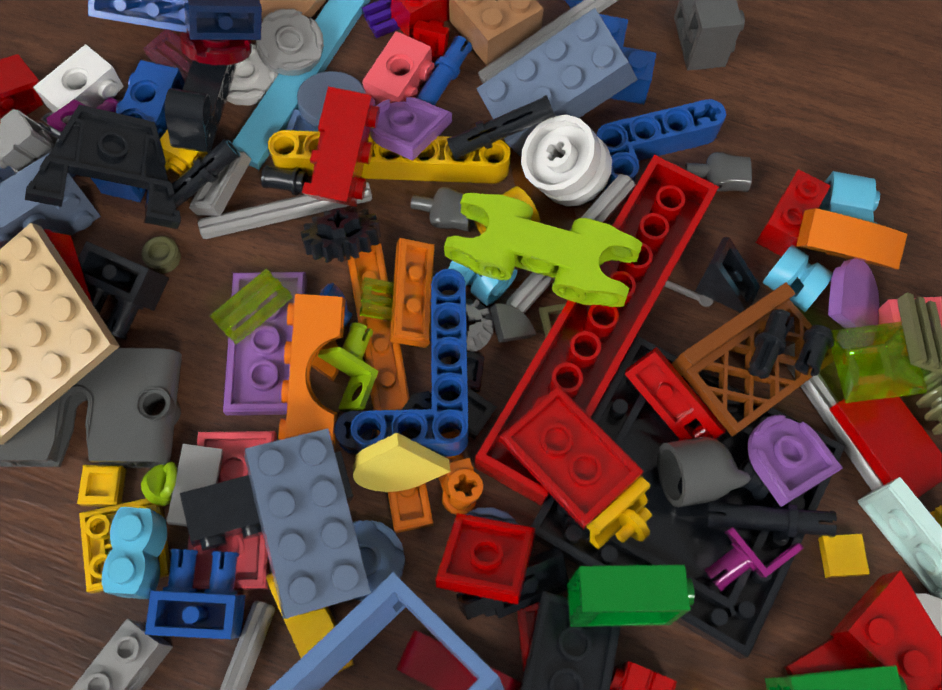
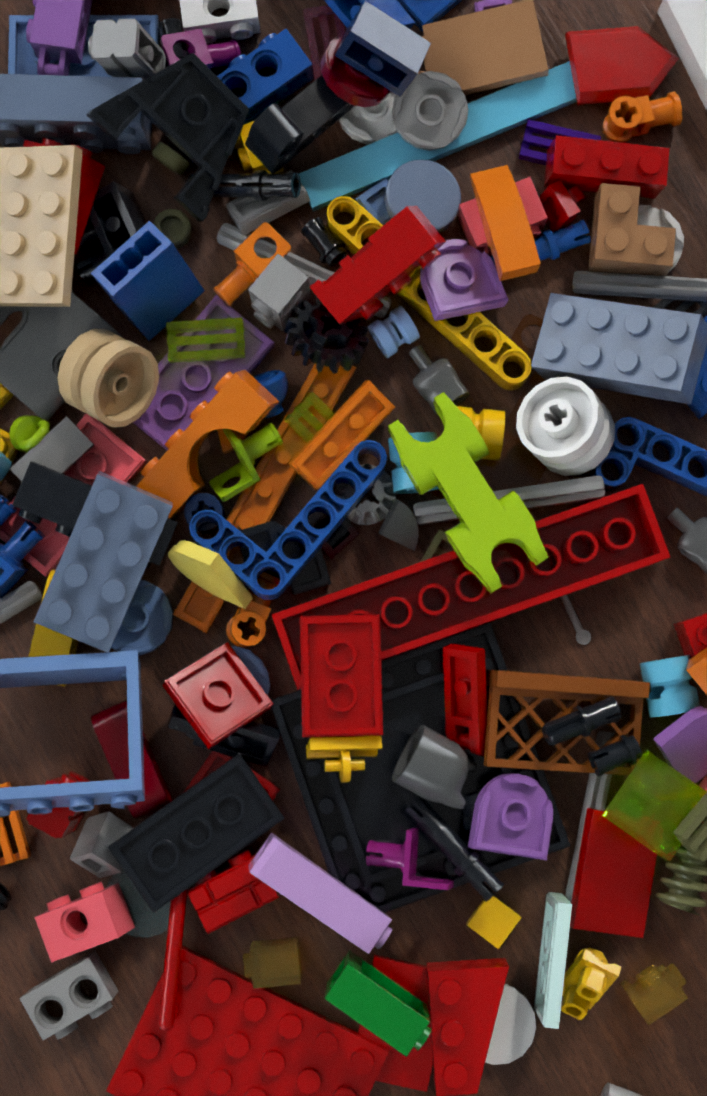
camera: 45 degrees right, 15 degrees up
(120, 206) = (170, 158): none -> olive tile
(170, 291) = (148, 280): none -> blue brick
(194, 384) = (108, 377): none -> tan wheel
(243, 228) = (249, 264): none -> orange bracket
(280, 228) = (278, 292): none -> light grey brick
(388, 196) = (391, 336): none -> light blue wheel
(408, 64) = (505, 223): none -> orange slope
(503, 126) = (489, 339): black pin -> none
(629, 595) = (289, 813): green window -> none
(707, 642) = (320, 894): none -> lavender slope
(729, 278) = (613, 639): black slope -> none

